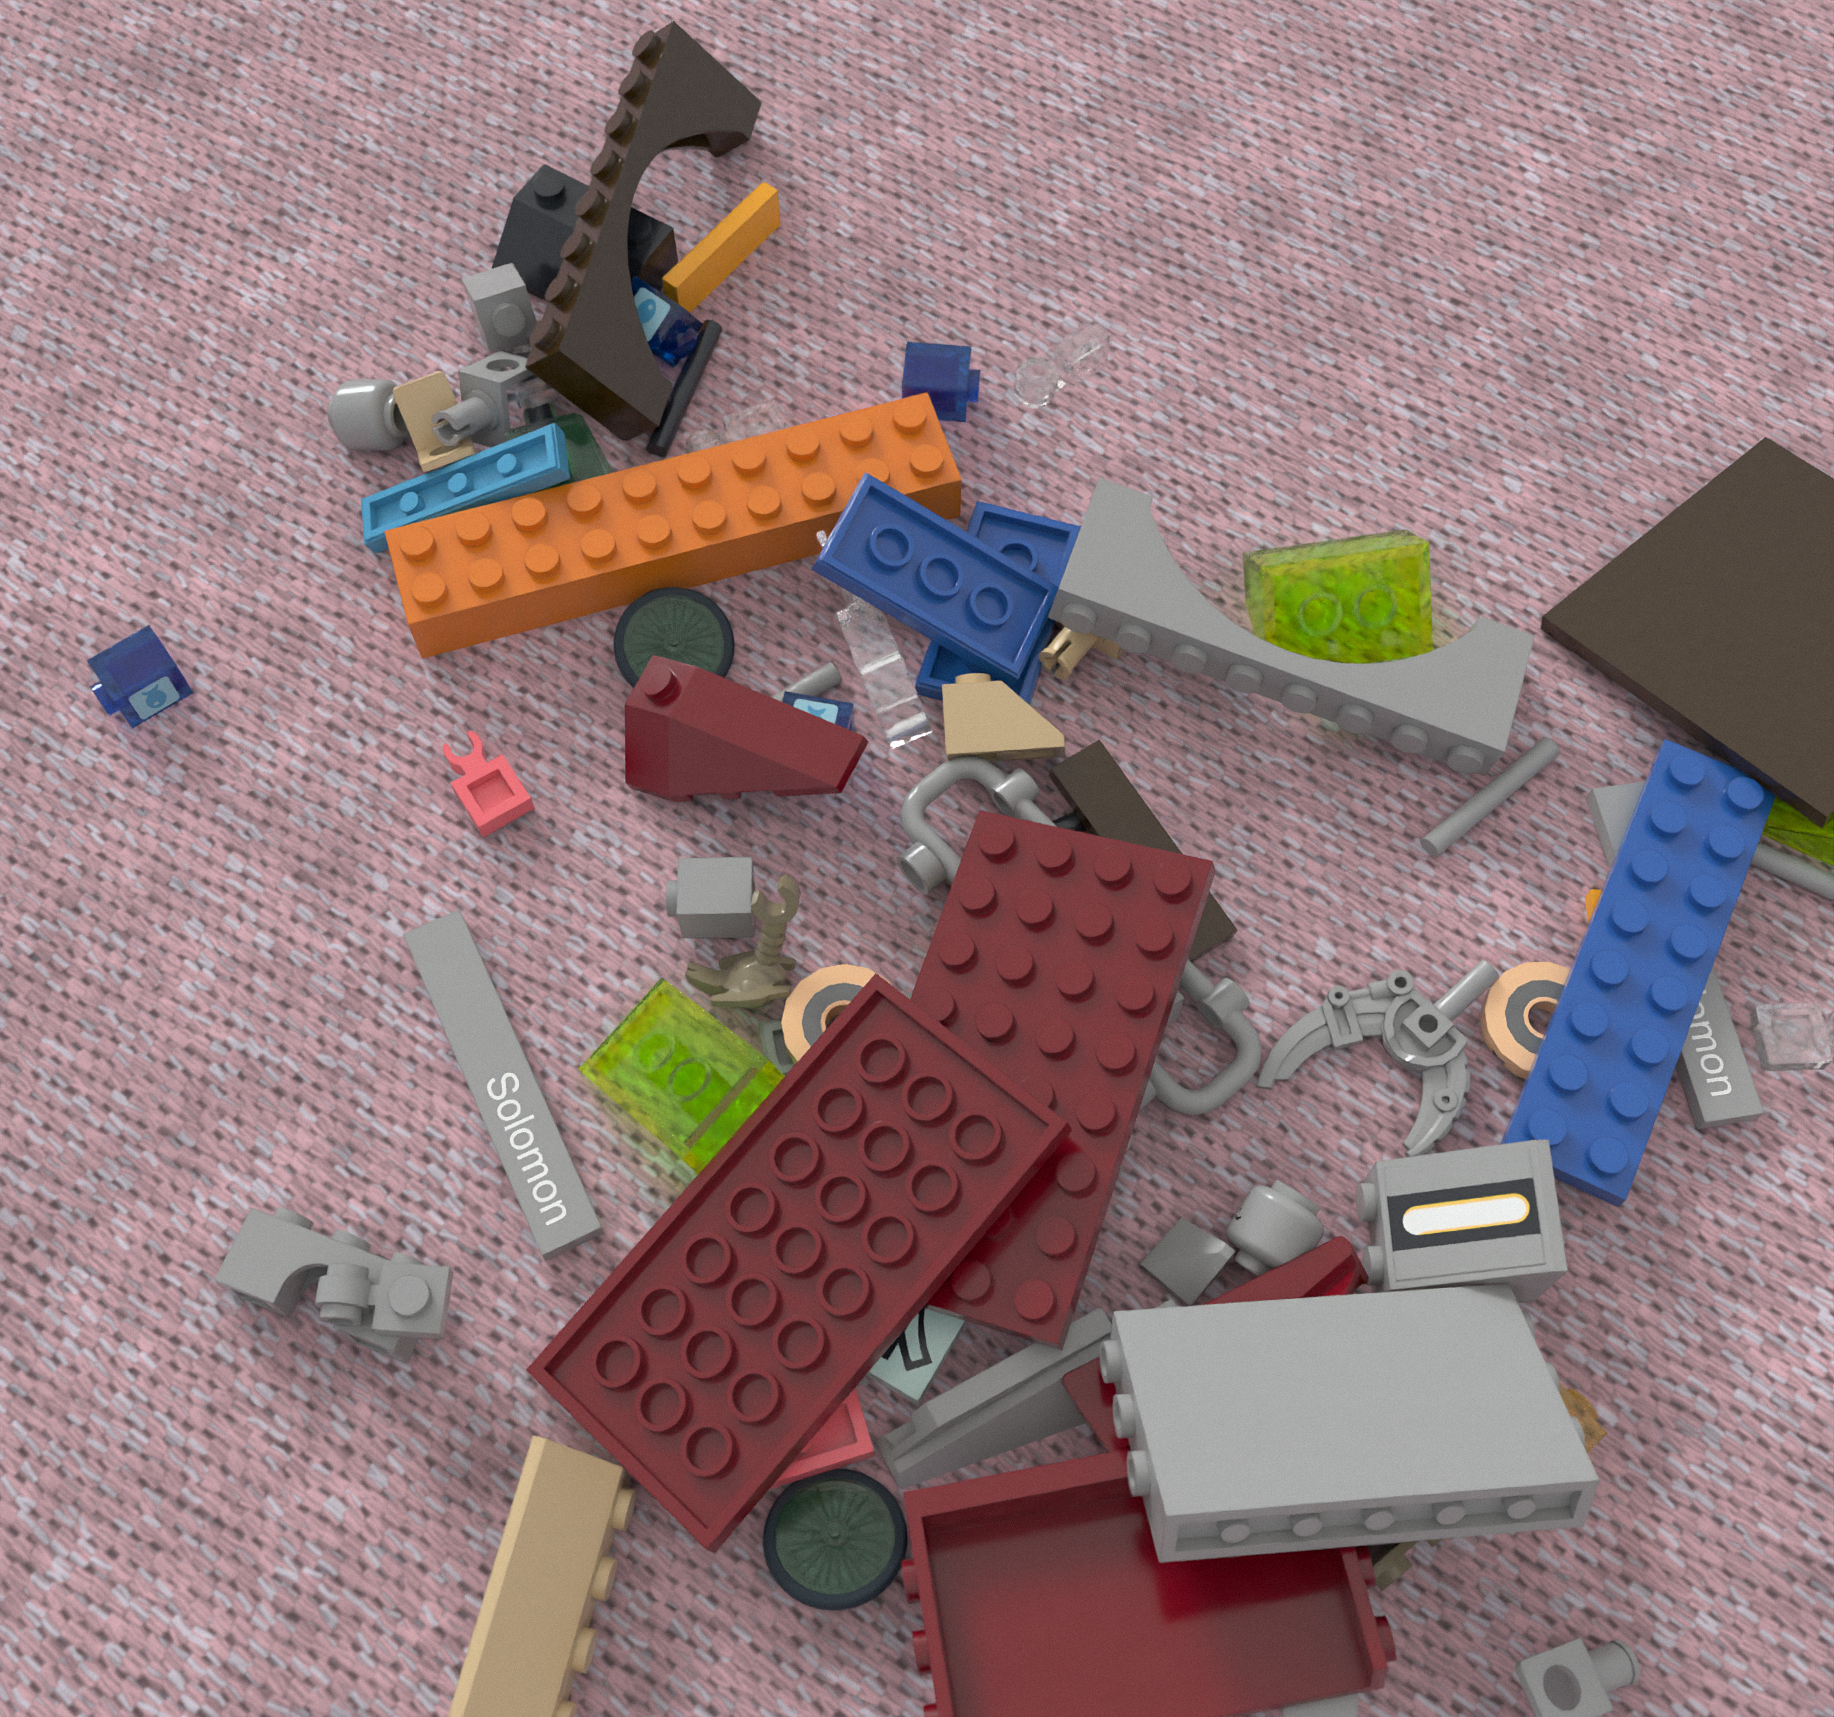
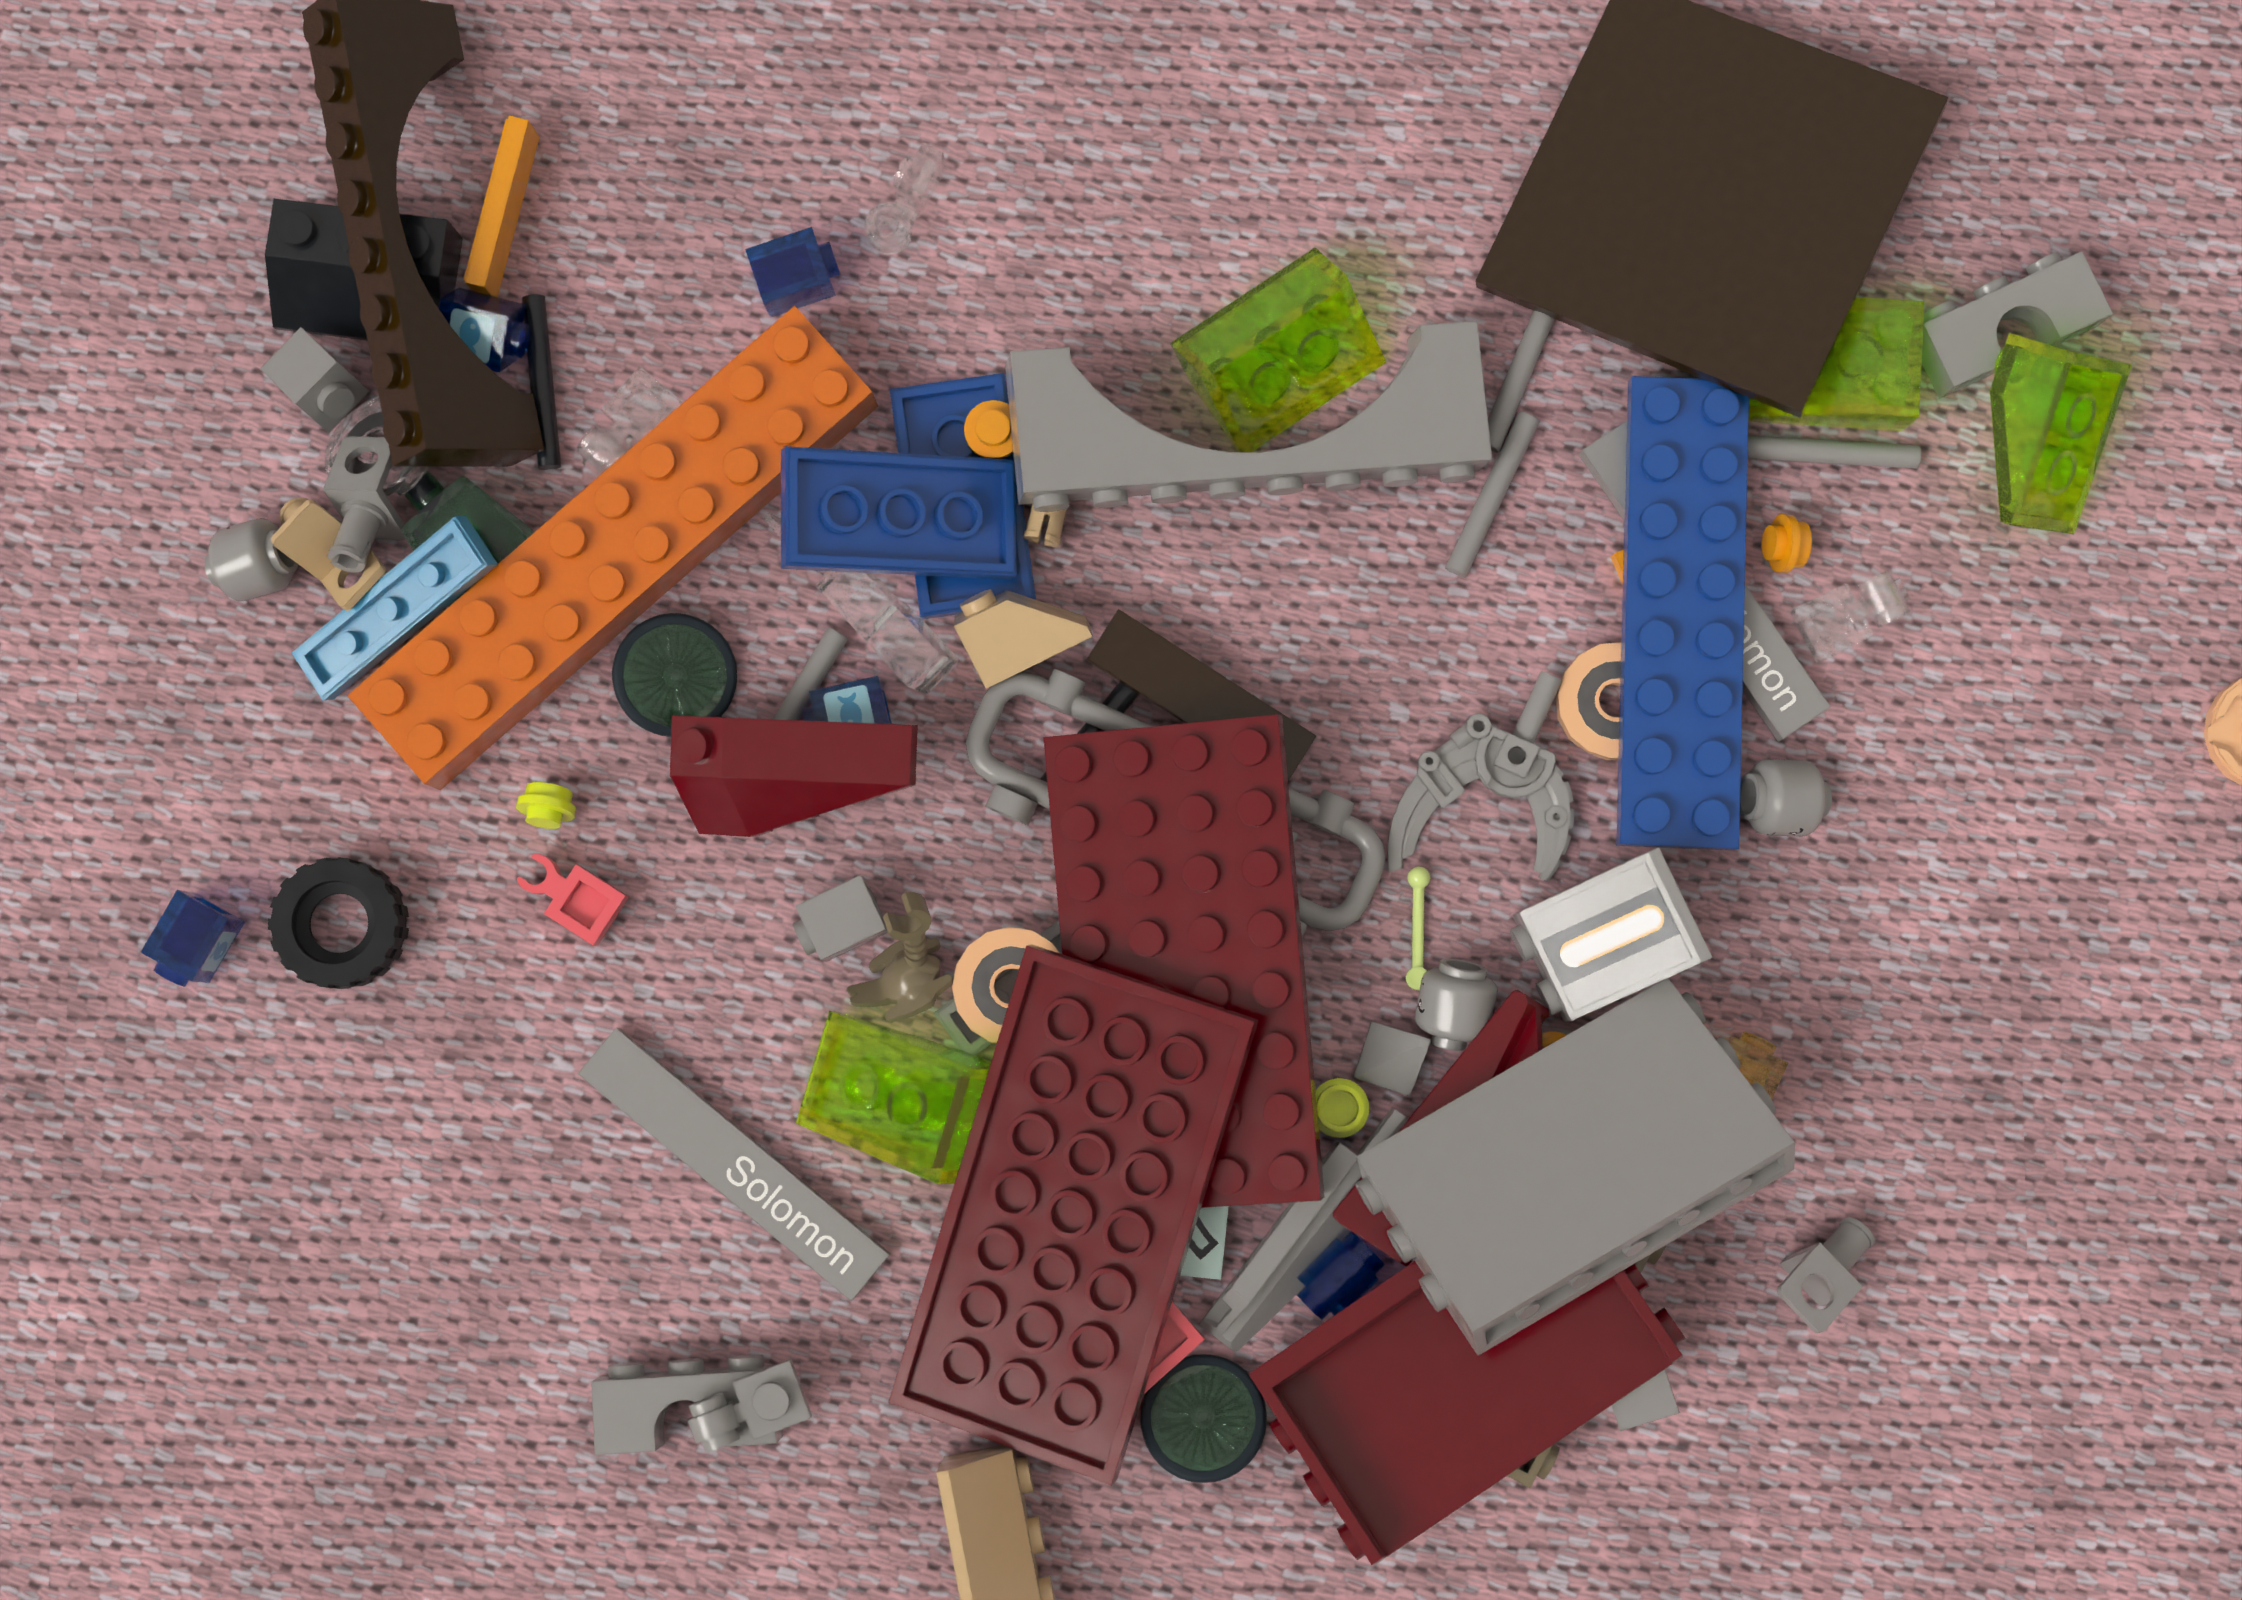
camera: 20 degrees left, 20 degrees up
(253, 681) = (293, 914): none -> black tyre
(504, 699) = (546, 805): none -> neon yellow plate
(1041, 1442) = (1339, 1276): none -> clear blue brick
(1049, 555) = (989, 430): none -> light orange plate
(1114, 1283) = (1341, 1107): none -> neon yellow plate
(1283, 1103) = (1418, 879): none -> yellowish green hinge
(1551, 712) = (1518, 378): none -> light grey bar
(1689, 1176) = (1784, 797): none -> light grey head
(1767, 946) = (1786, 543): none -> light orange plate

